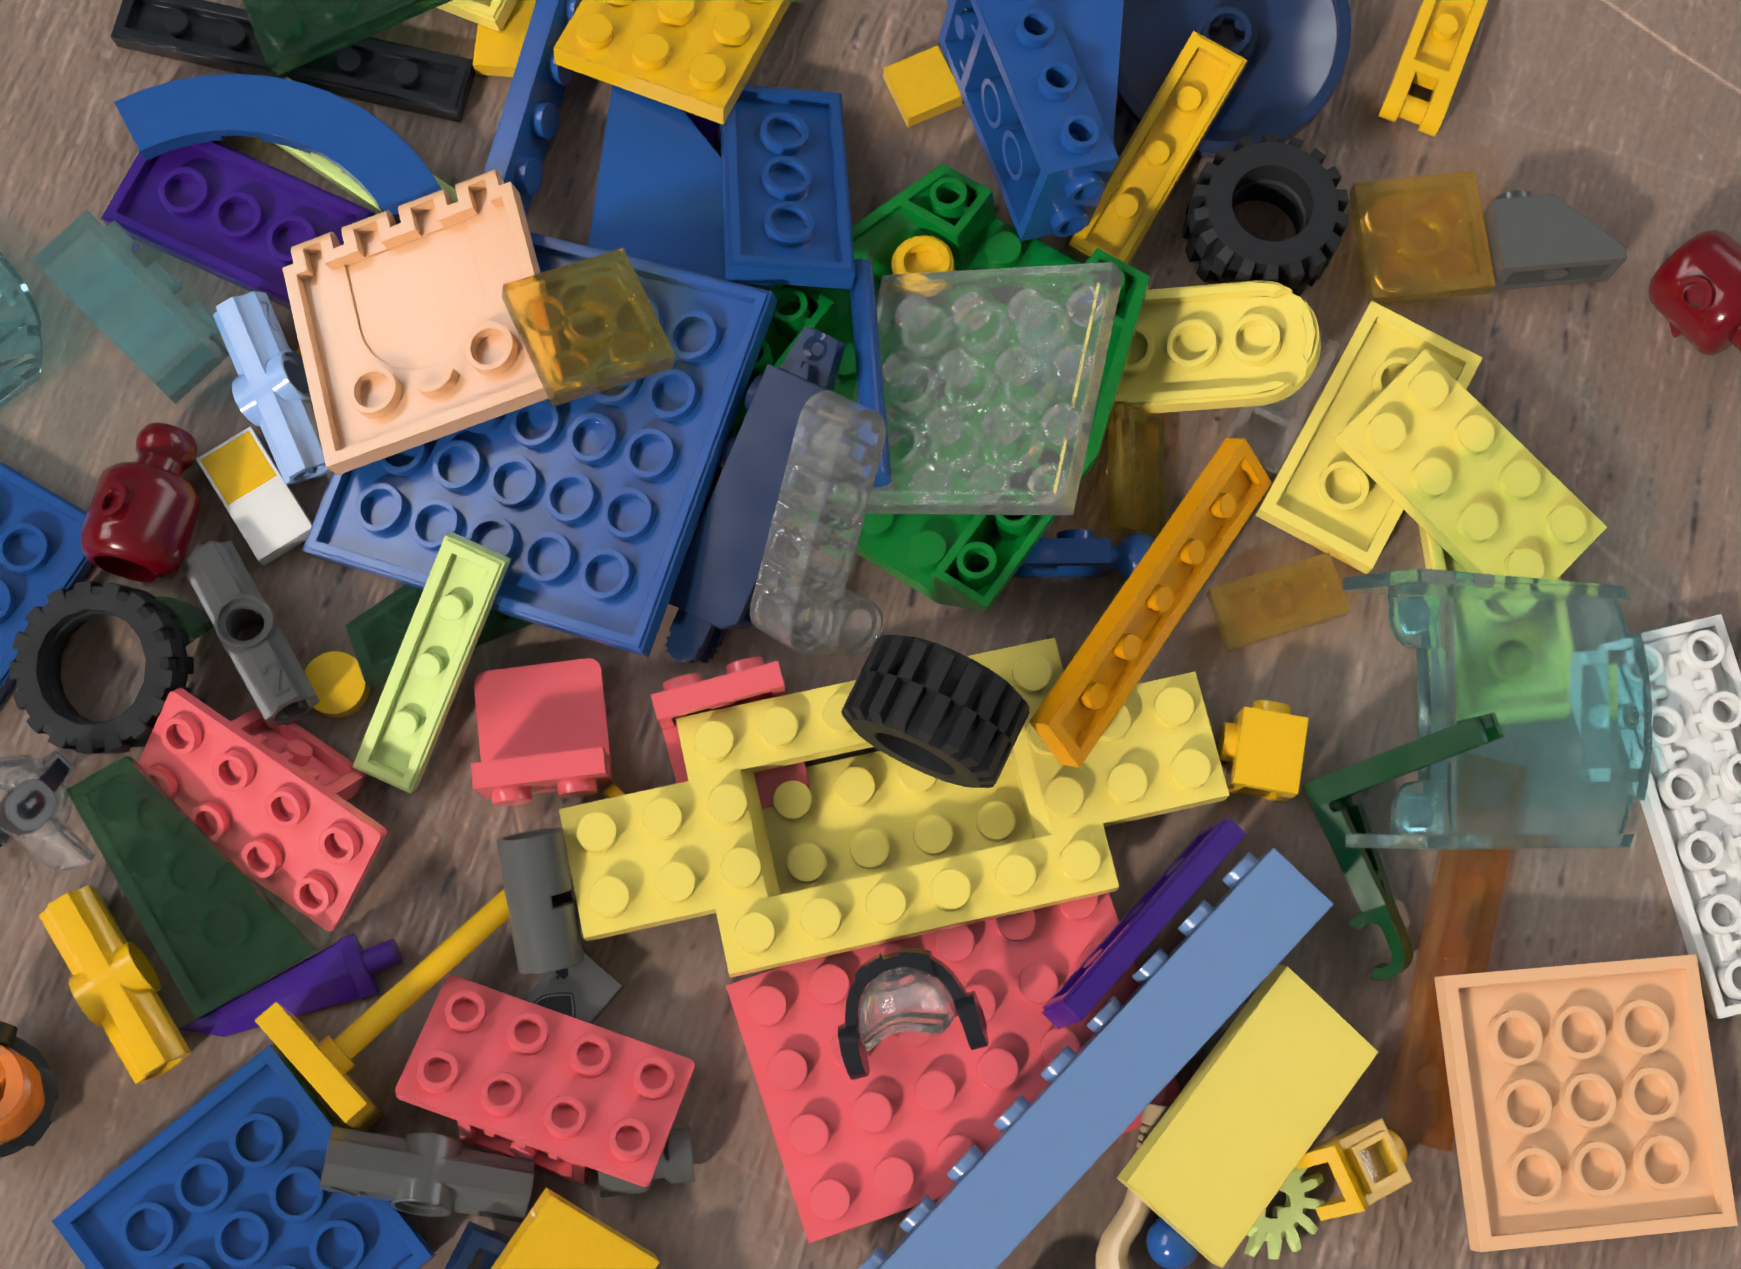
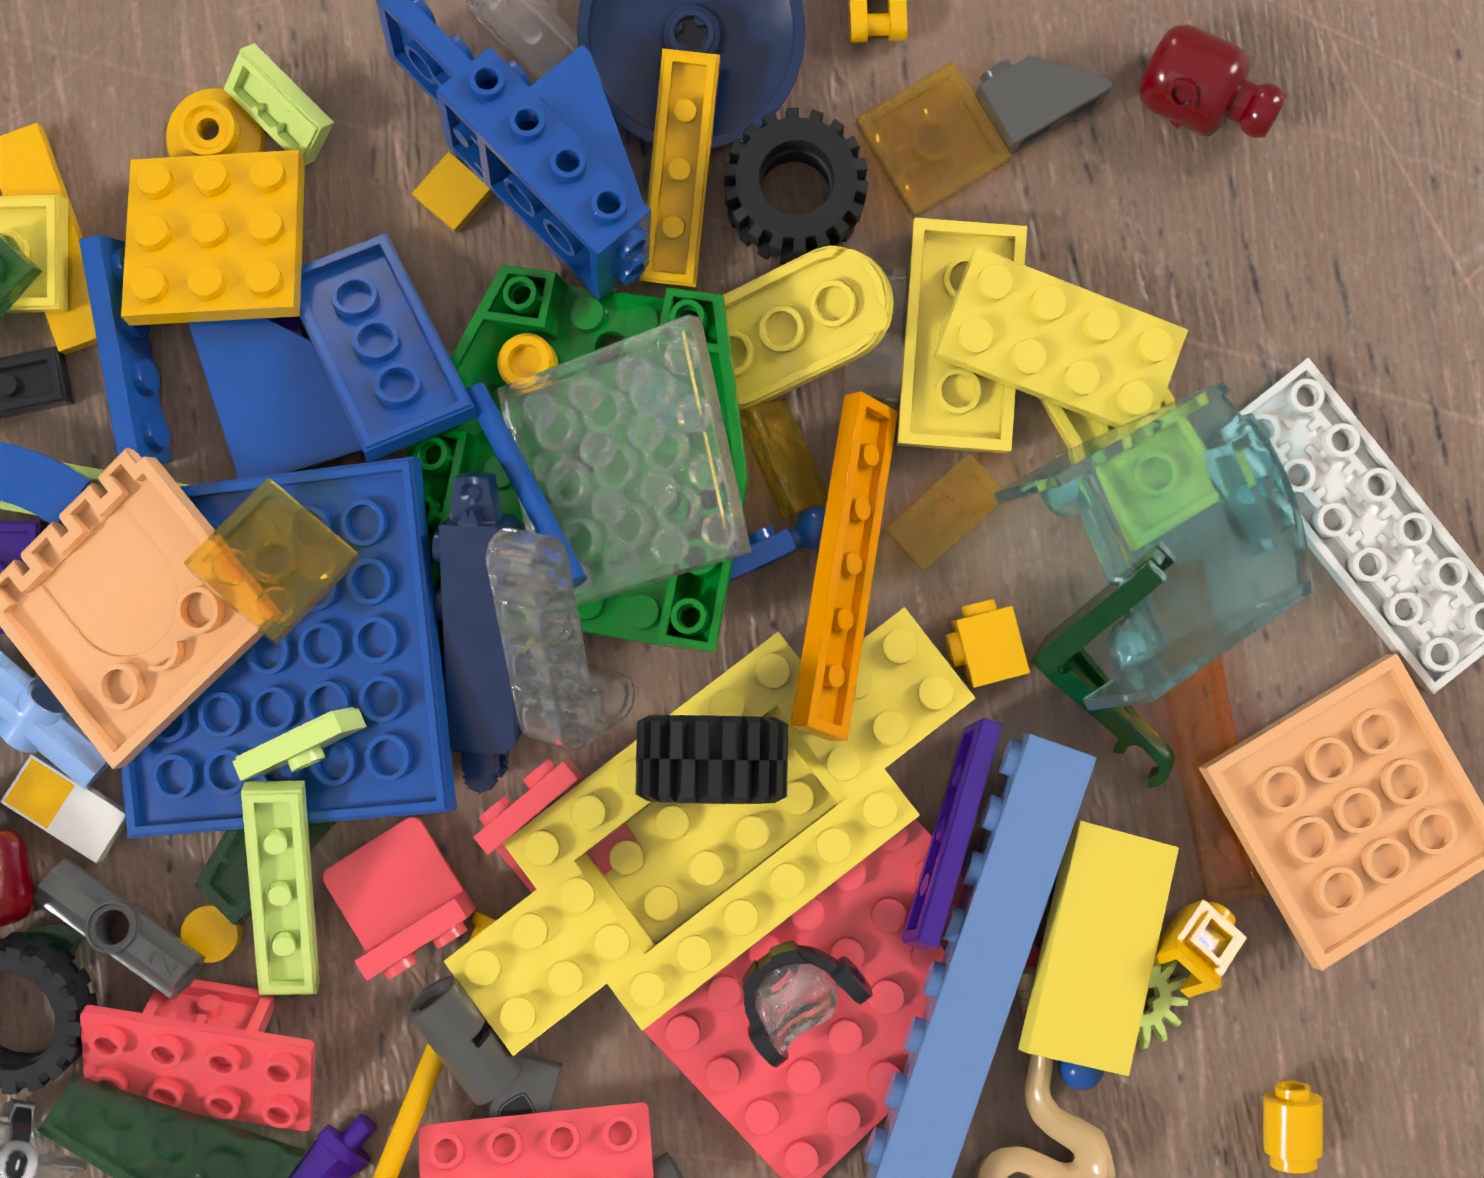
camera: 25 degrees left, 10 degrees up
(525, 517) = (299, 746): none -> yellowish green plate

